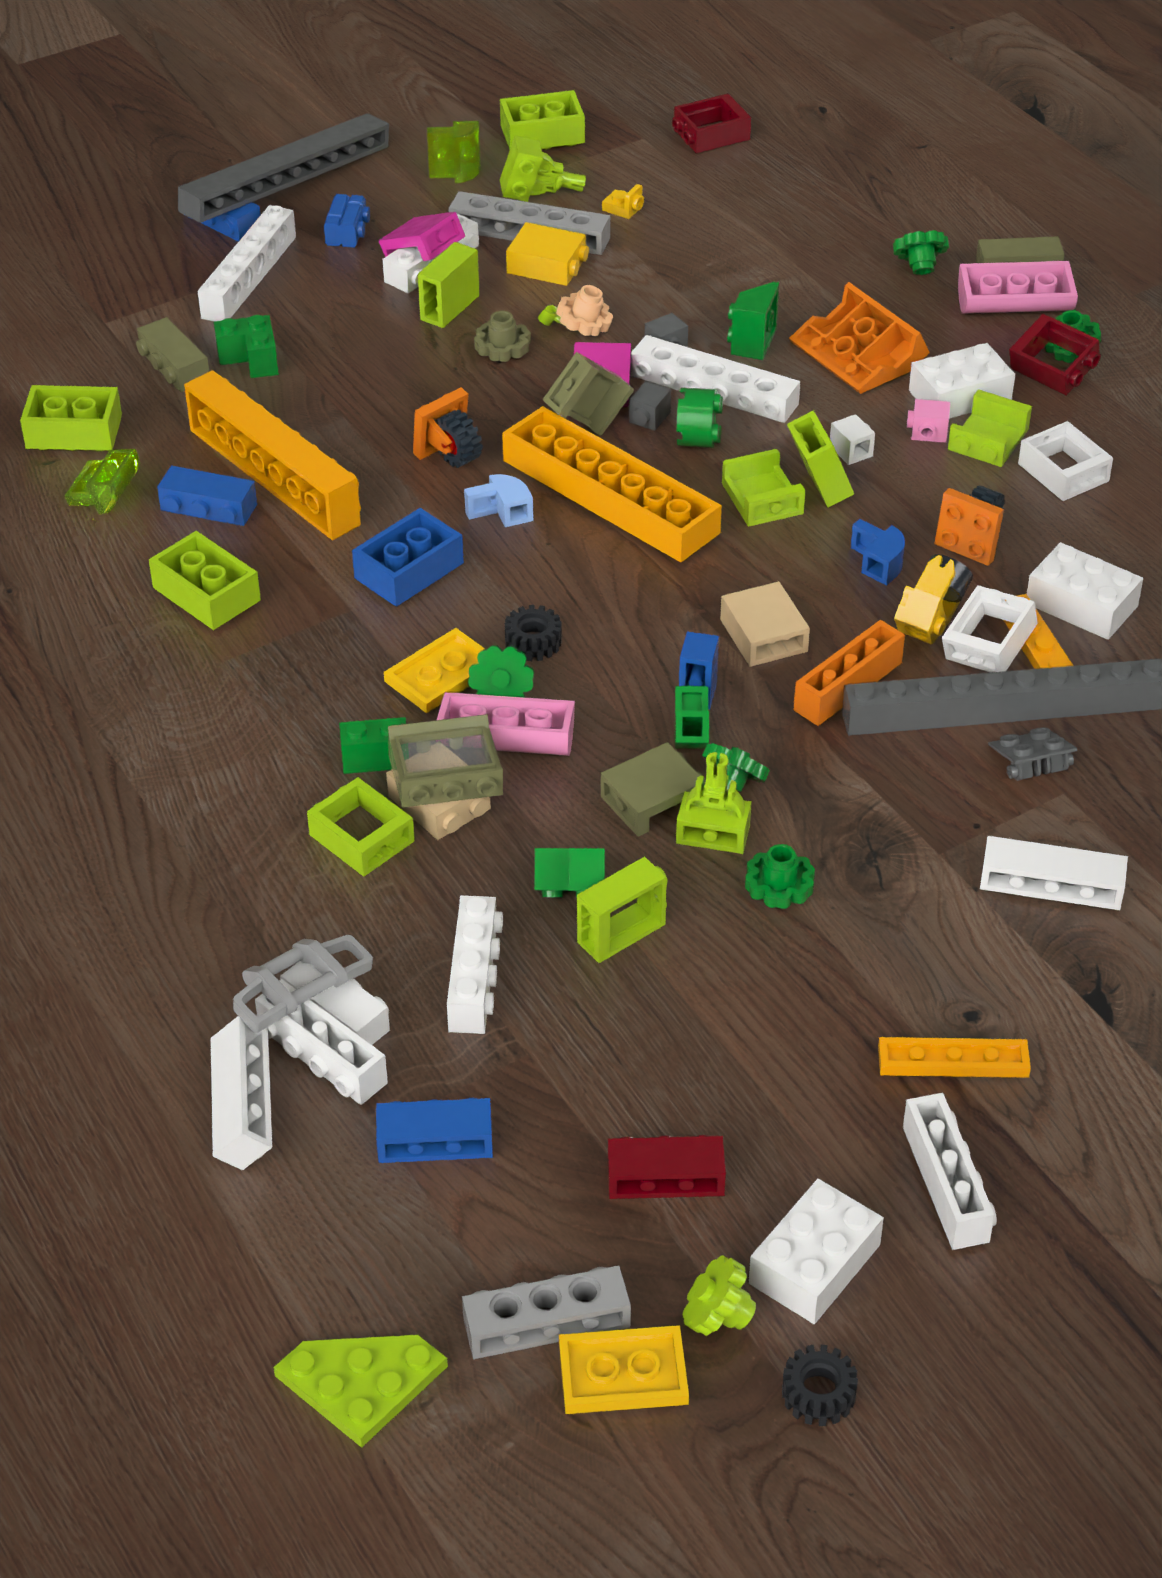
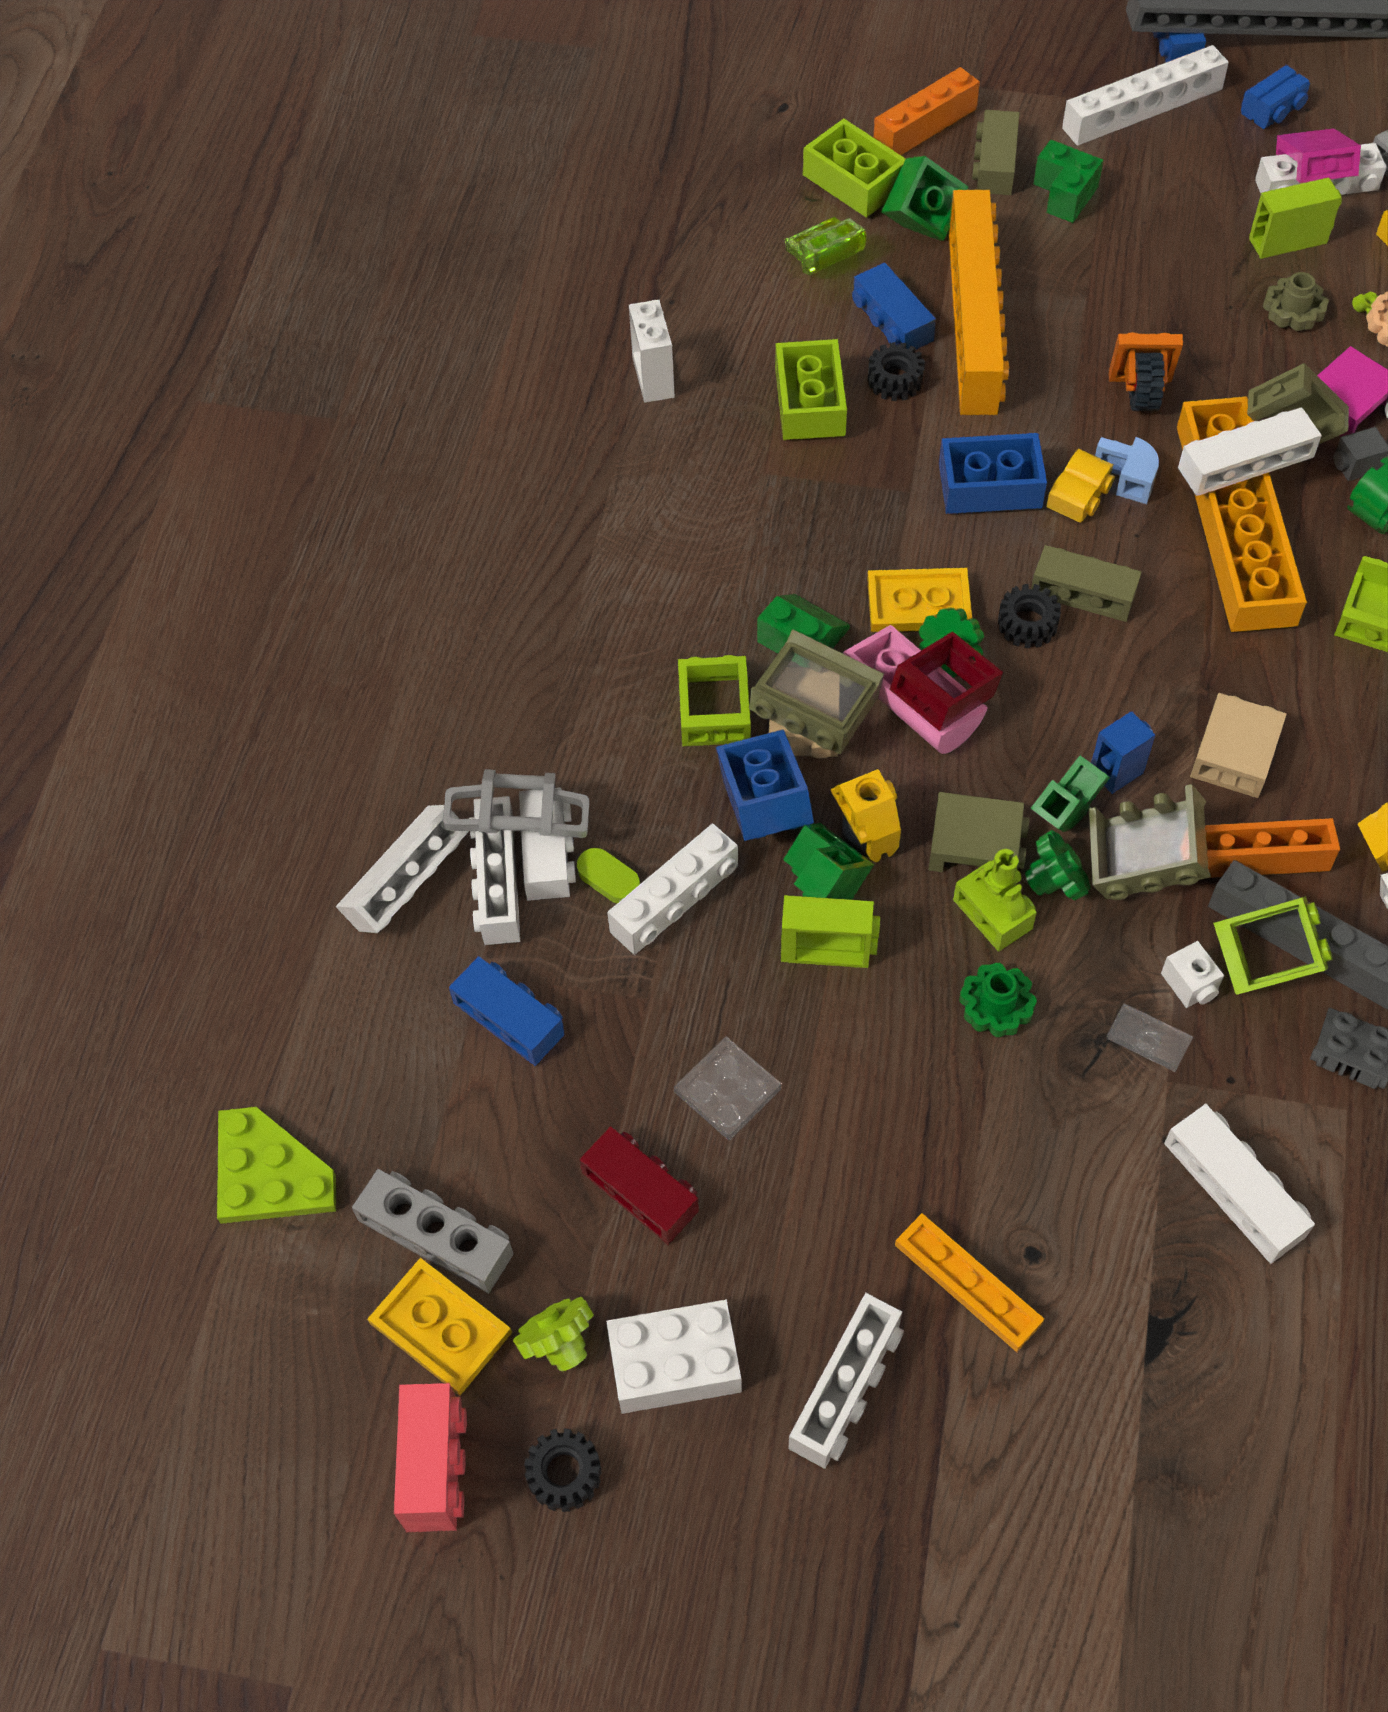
camera: 45 degrees right, 15 degrees up
(65, 639) = (651, 350): none -> white window
(88, 349) = (928, 111): none -> orange brick
(153, 408) = (923, 197): none -> green slope
(255, 536) = (893, 384): none -> black tyre
(409, 993) = (606, 874): none -> lime tile
(471, 846) = (764, 785): none -> blue brick
(480, 531) = (1080, 485): none -> yellow brick
(545, 690) = (930, 699): none -> dark red window
(555, 586) = (1087, 582): none -> olive brick
(569, 812) = (869, 815): none -> yellow piece
(588, 432) = (1249, 451): none -> white brick
(657, 1062) = (727, 1088): none -> clear plate
(723, 1446) = (429, 1458): none -> coral brick
(783, 711) = (1149, 846): none -> window
(889, 776) = (1192, 975): none -> white brick
(902, 832) = (1149, 1037): none -> clear plate
(906, 742) = (1235, 955): none -> lime window

